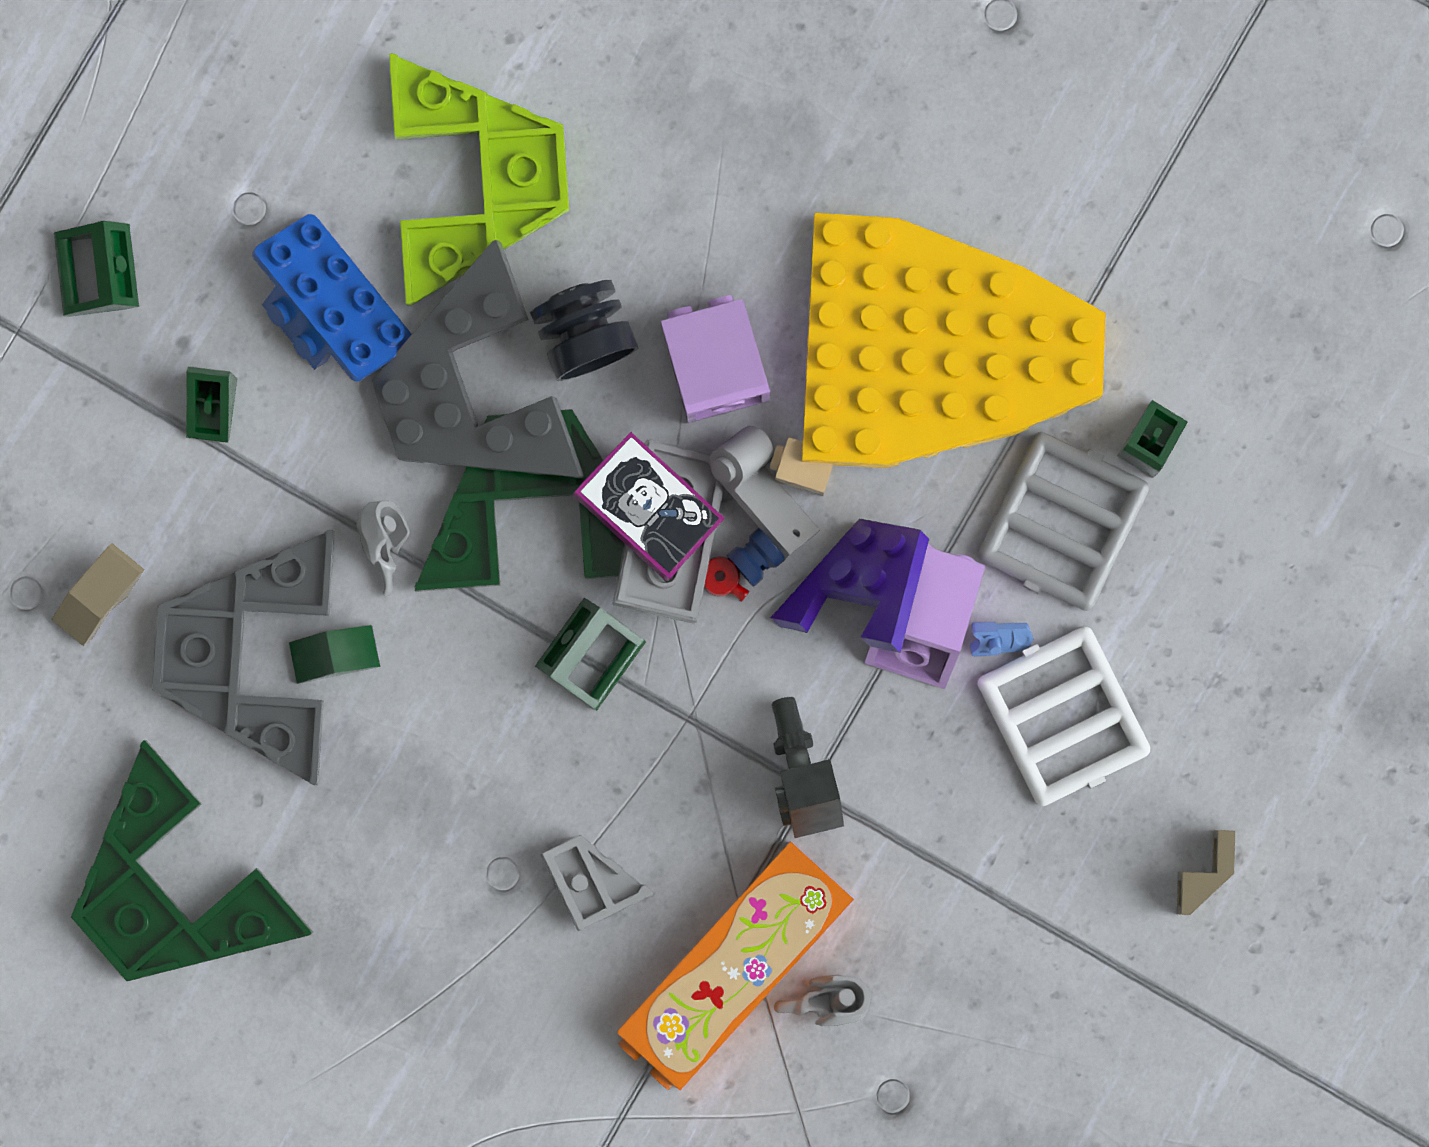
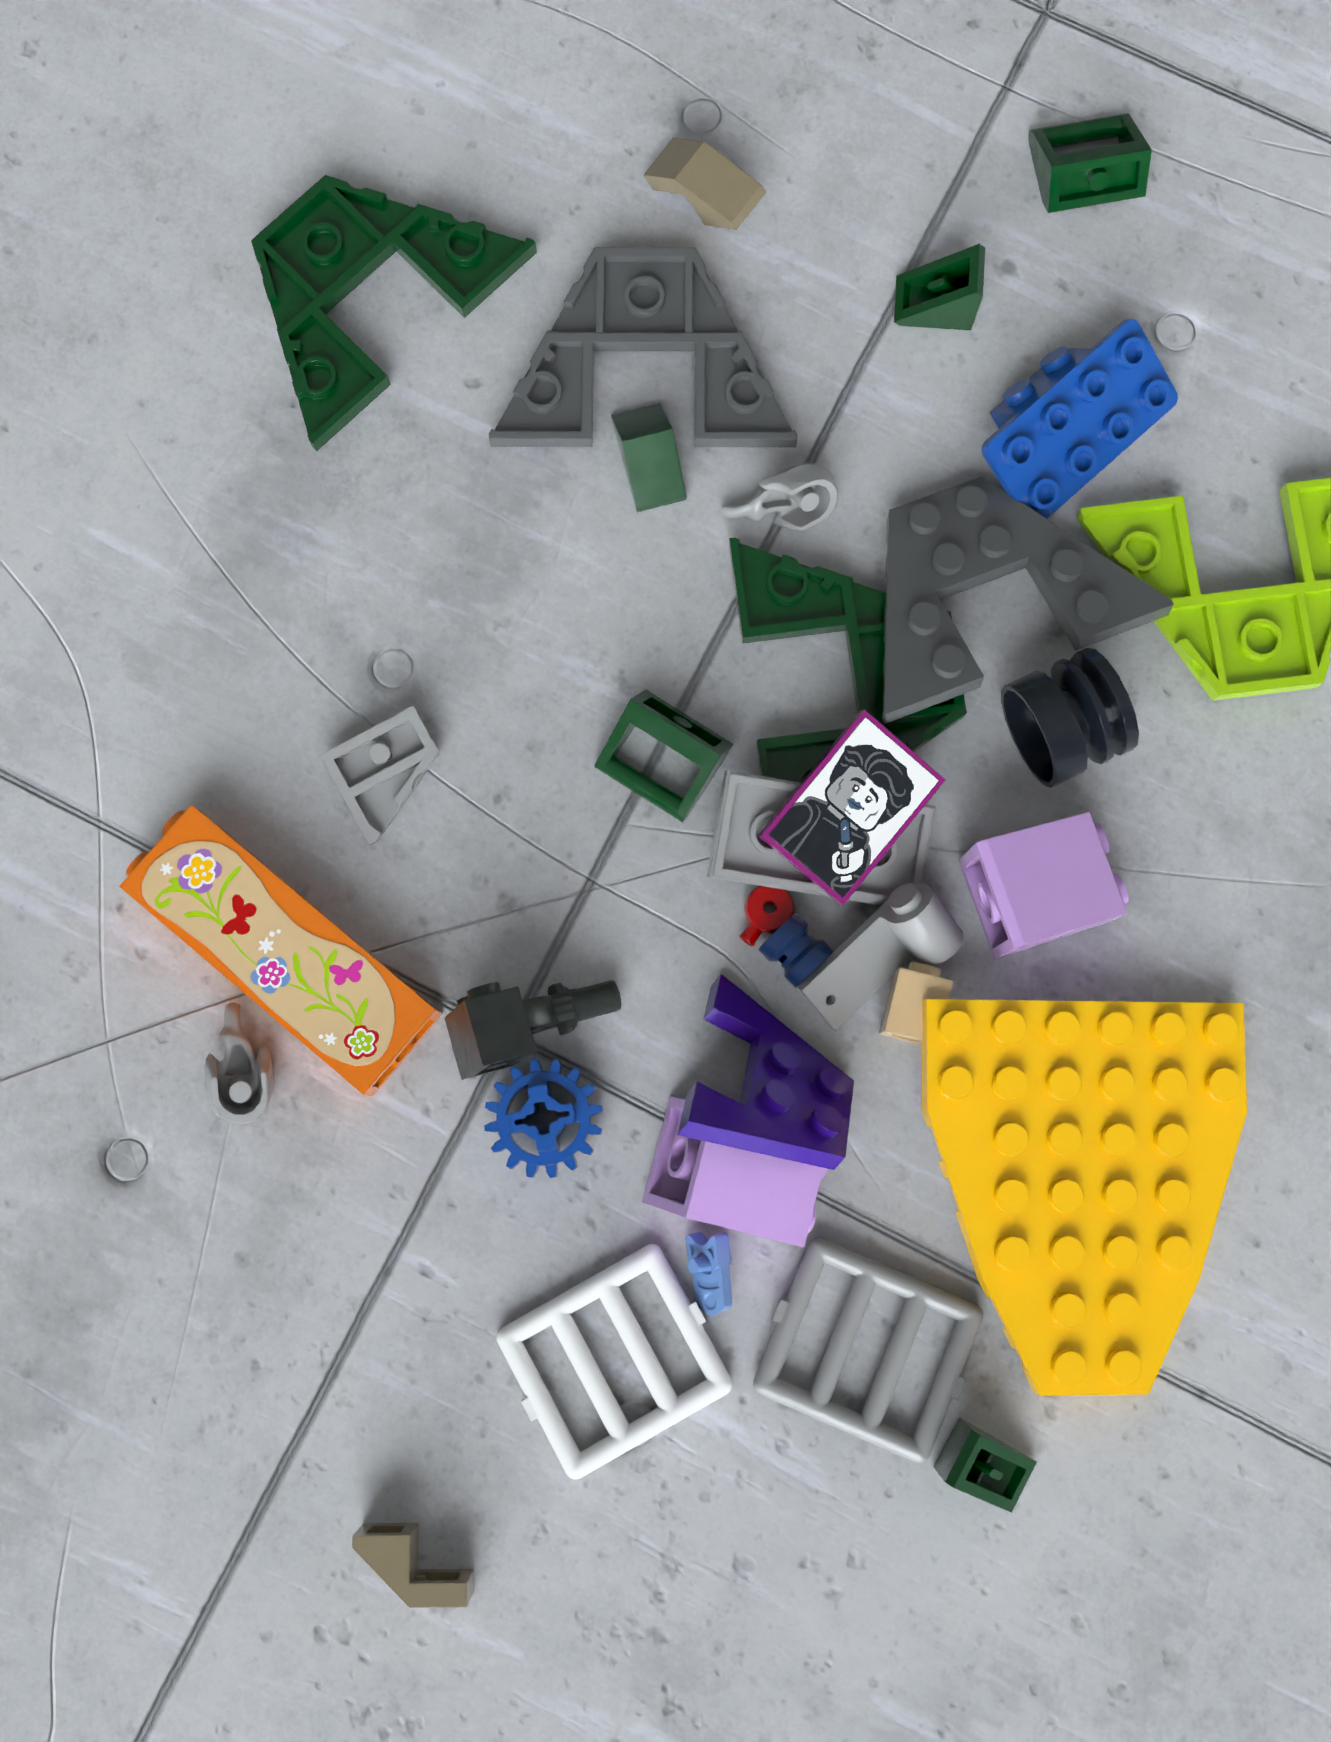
camera: 90 degrees right, 5 degrees down
(858, 763) = (539, 1093): none -> blue gear

